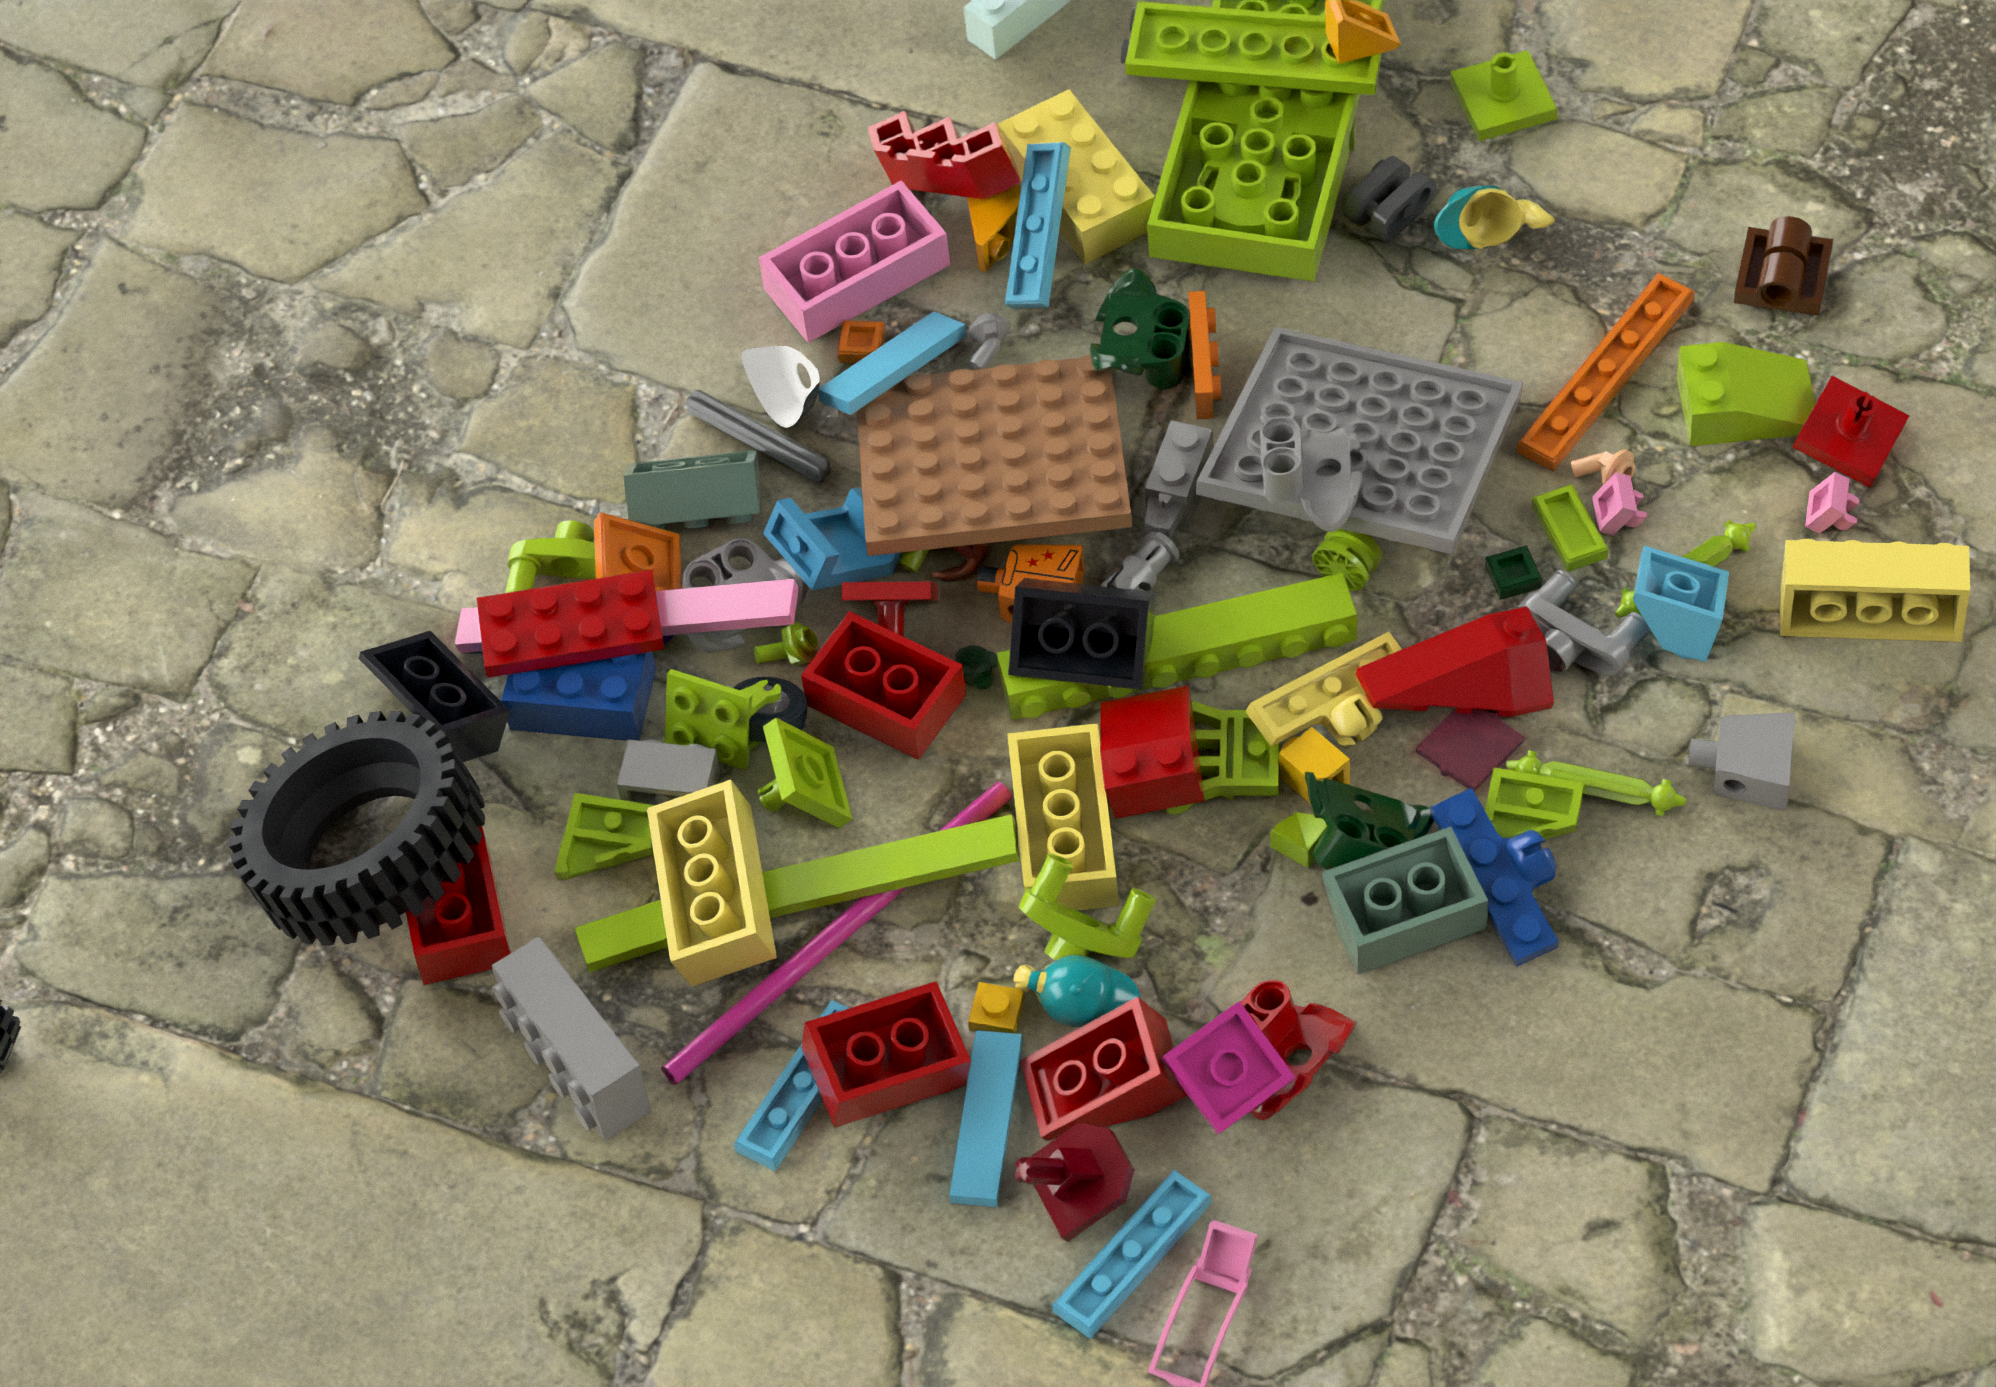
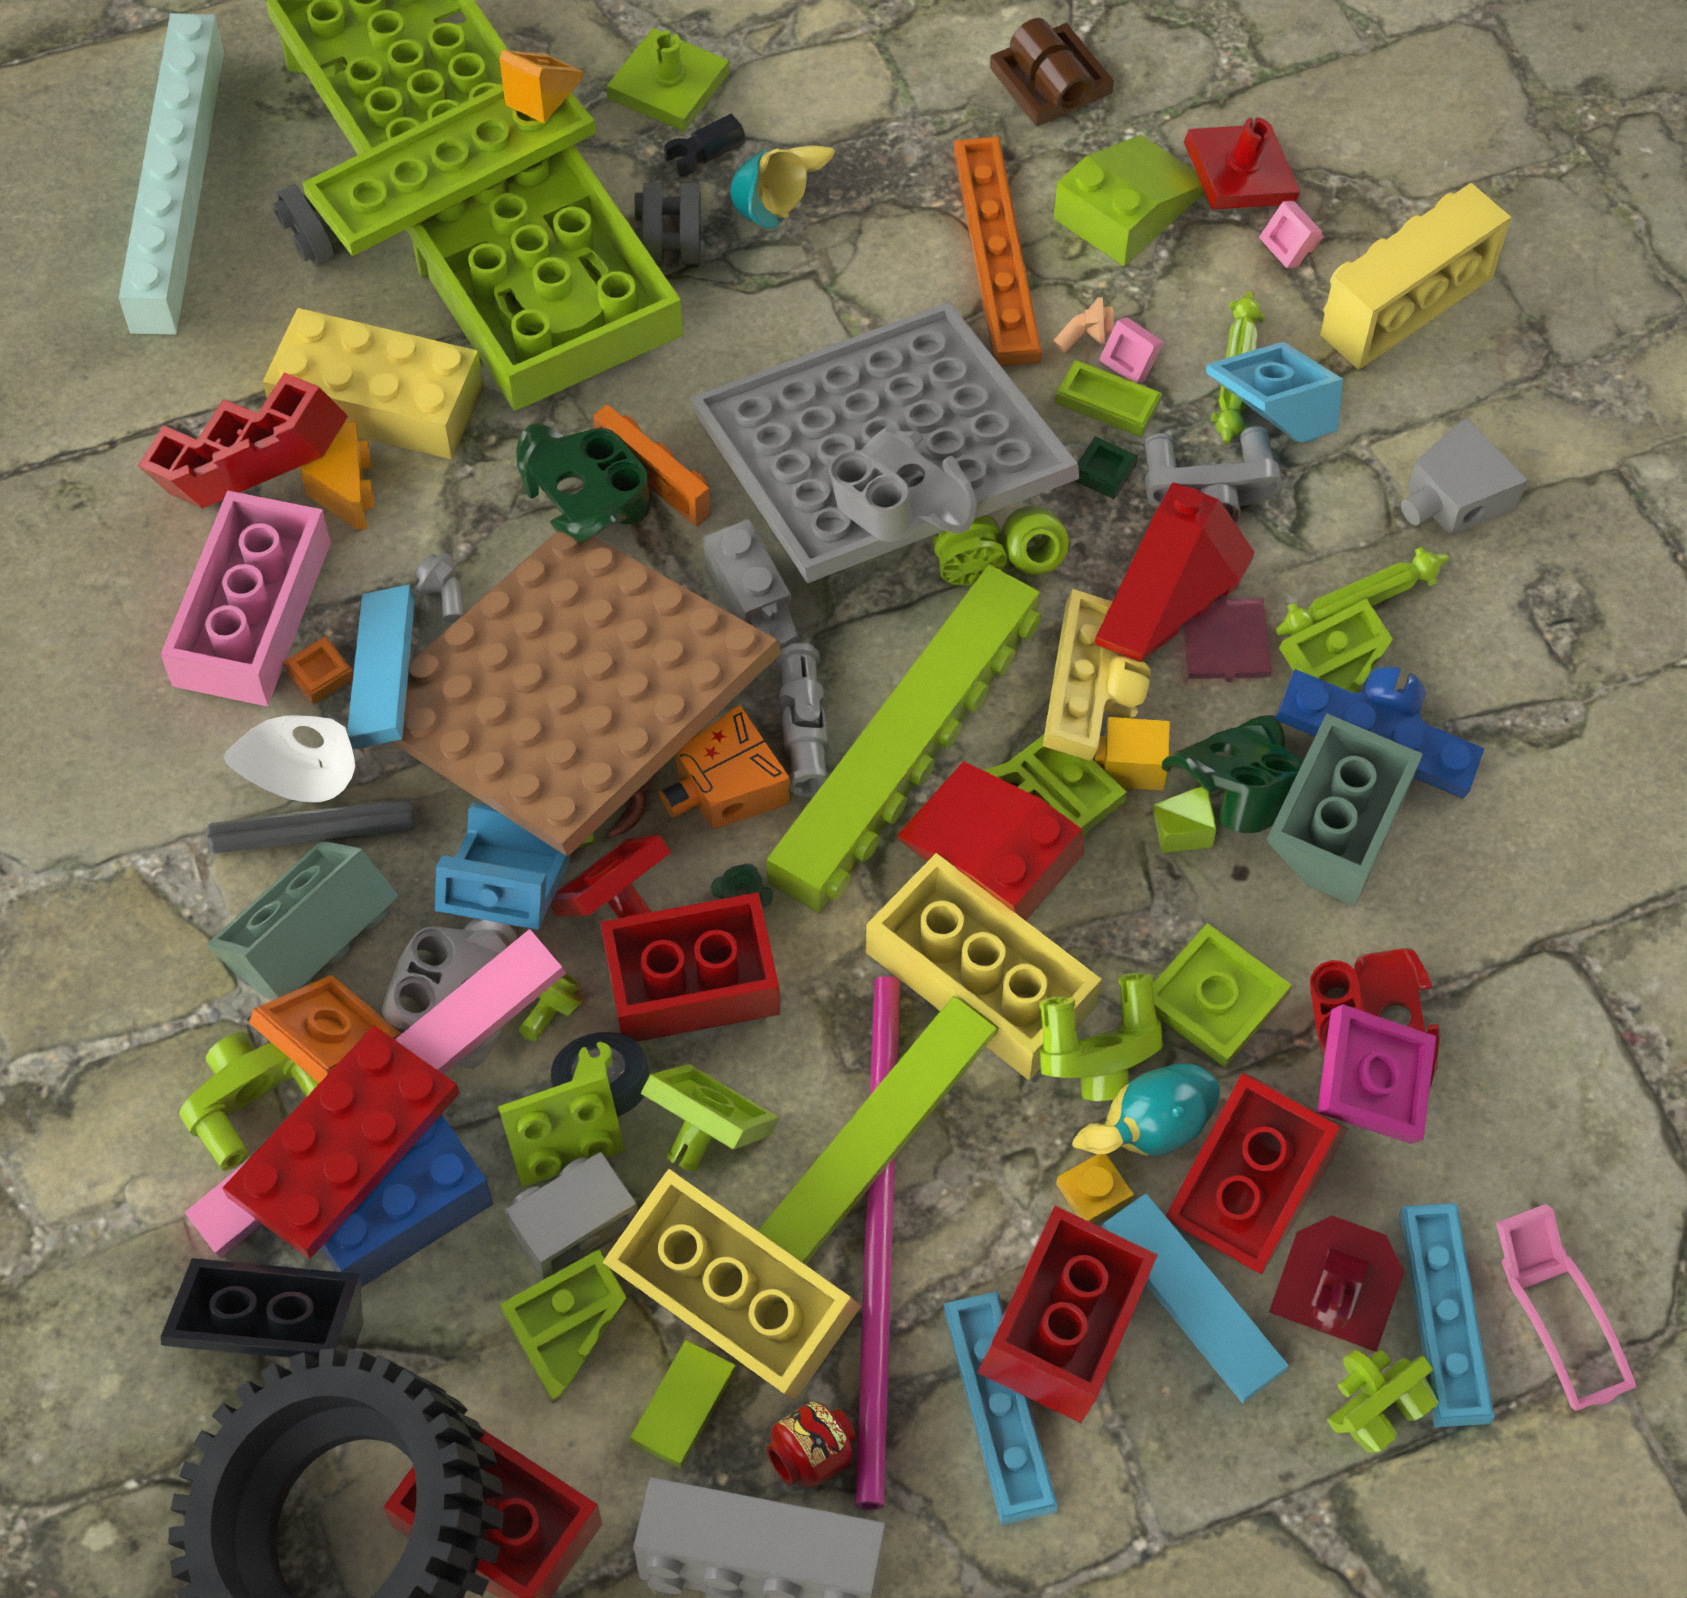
camera: 50 degrees left, 5 degrees up
(666, 1011) = (811, 1445): none -> red head
(1007, 1262) = (1399, 1384): none -> lime hips
(1037, 225) = (394, 447): medium azure tile -> none
(1081, 633) = (837, 780): black slope -> none
(1199, 954) = (1217, 994): none -> lime plate
(1398, 581) = (1045, 550): none -> lime head
(1477, 159) = (705, 144): none -> black bar

